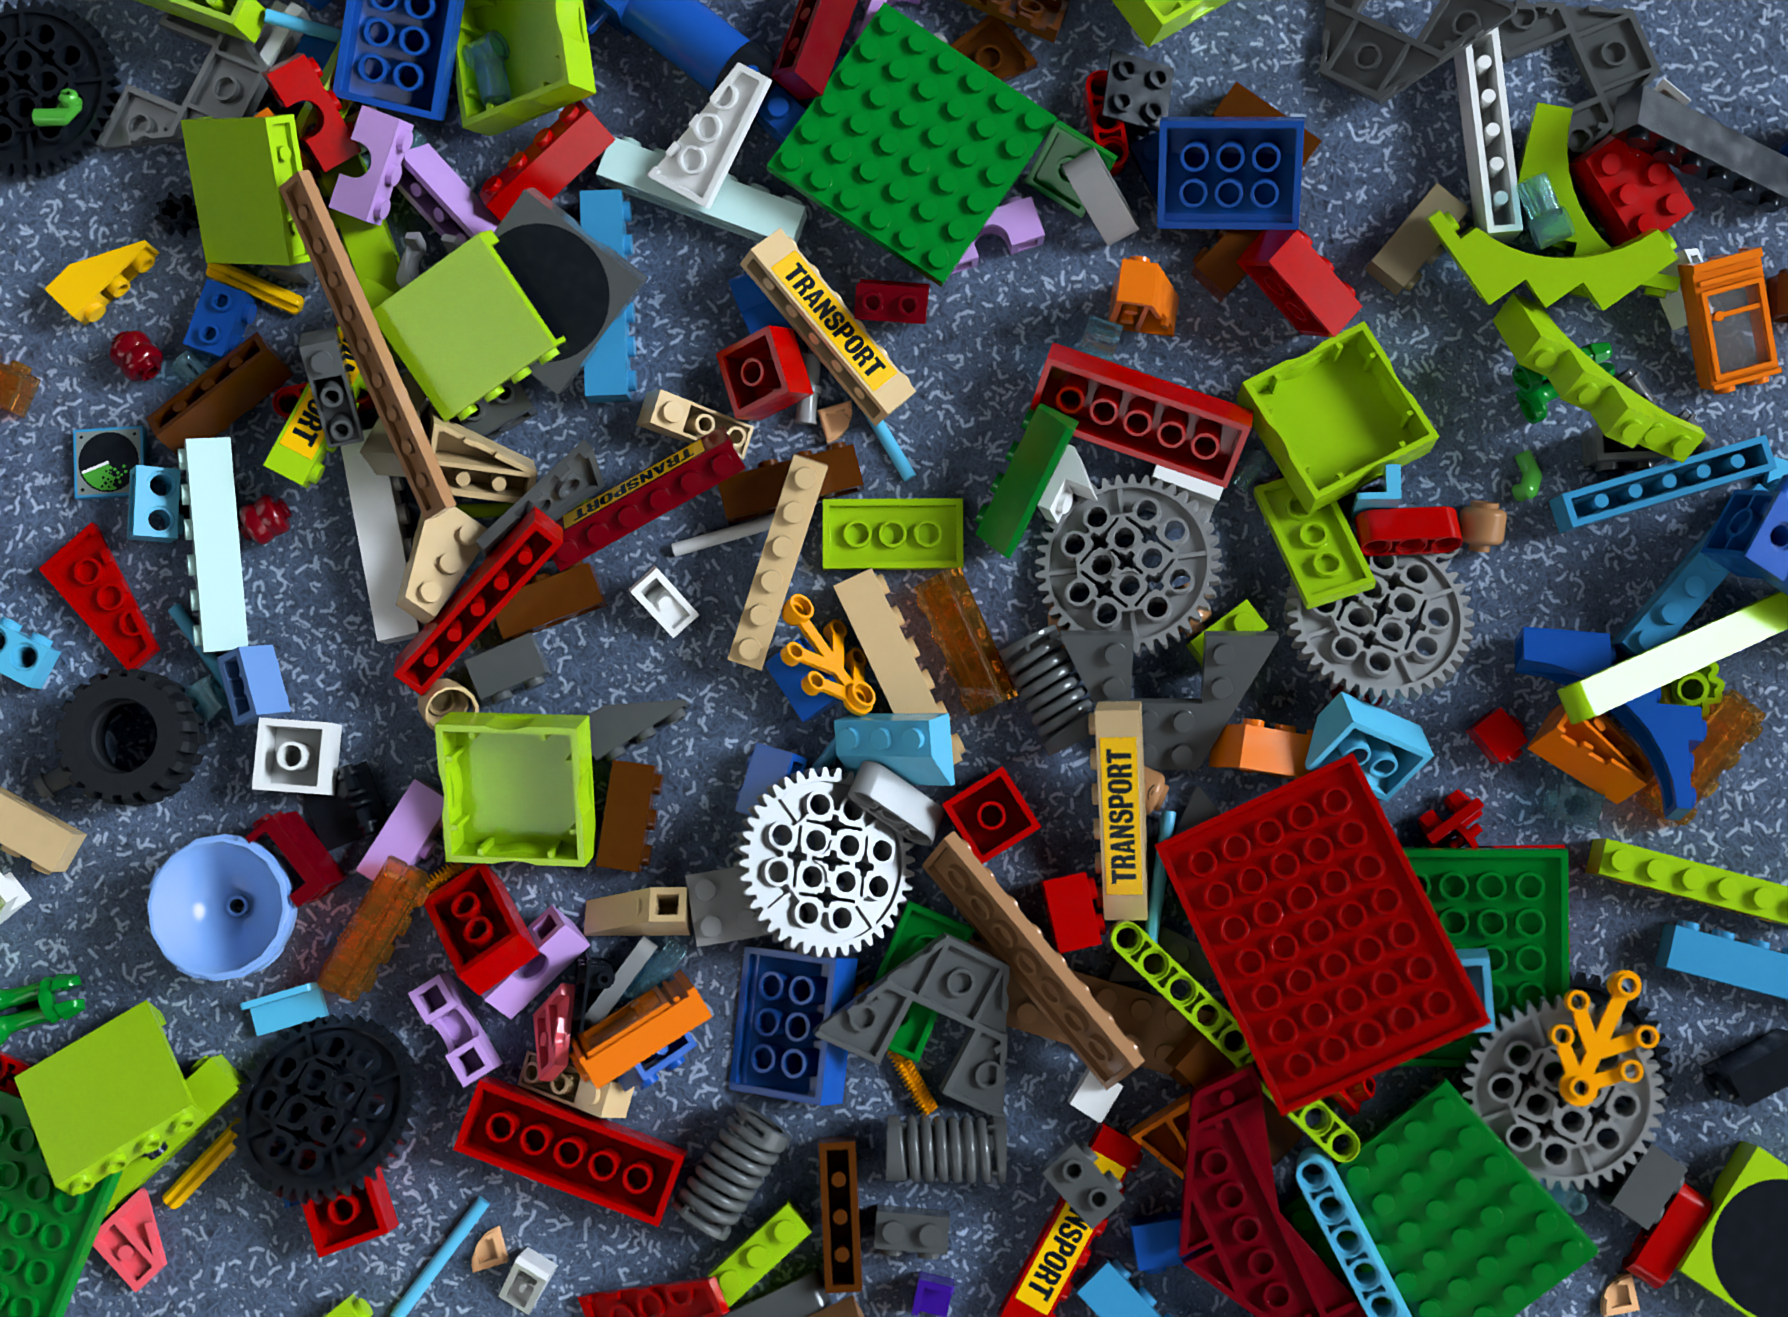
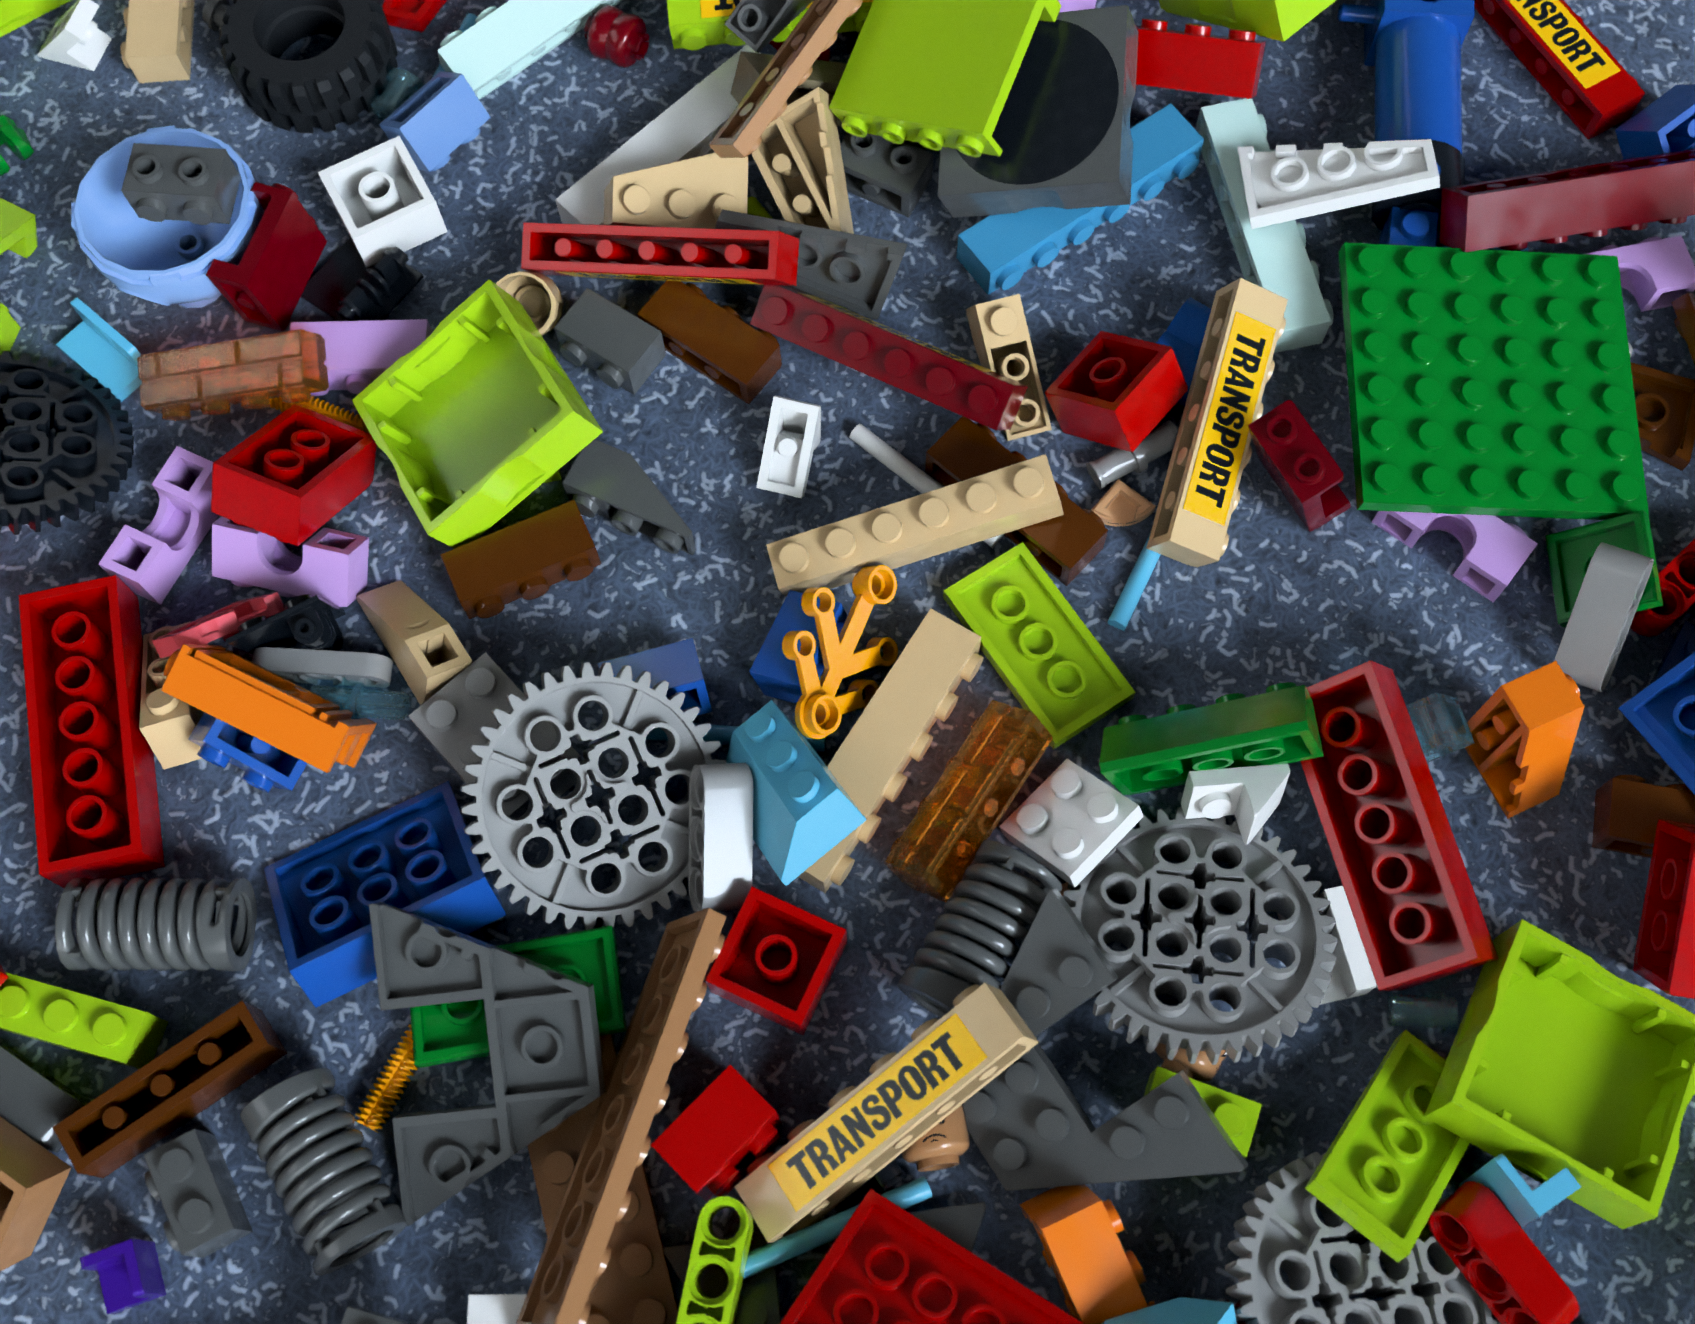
camera: 55 degrees right, 15 degrees down
(222, 888) = (181, 183): none -> dark grey brick
(1017, 591) = (1071, 822): none -> white plate

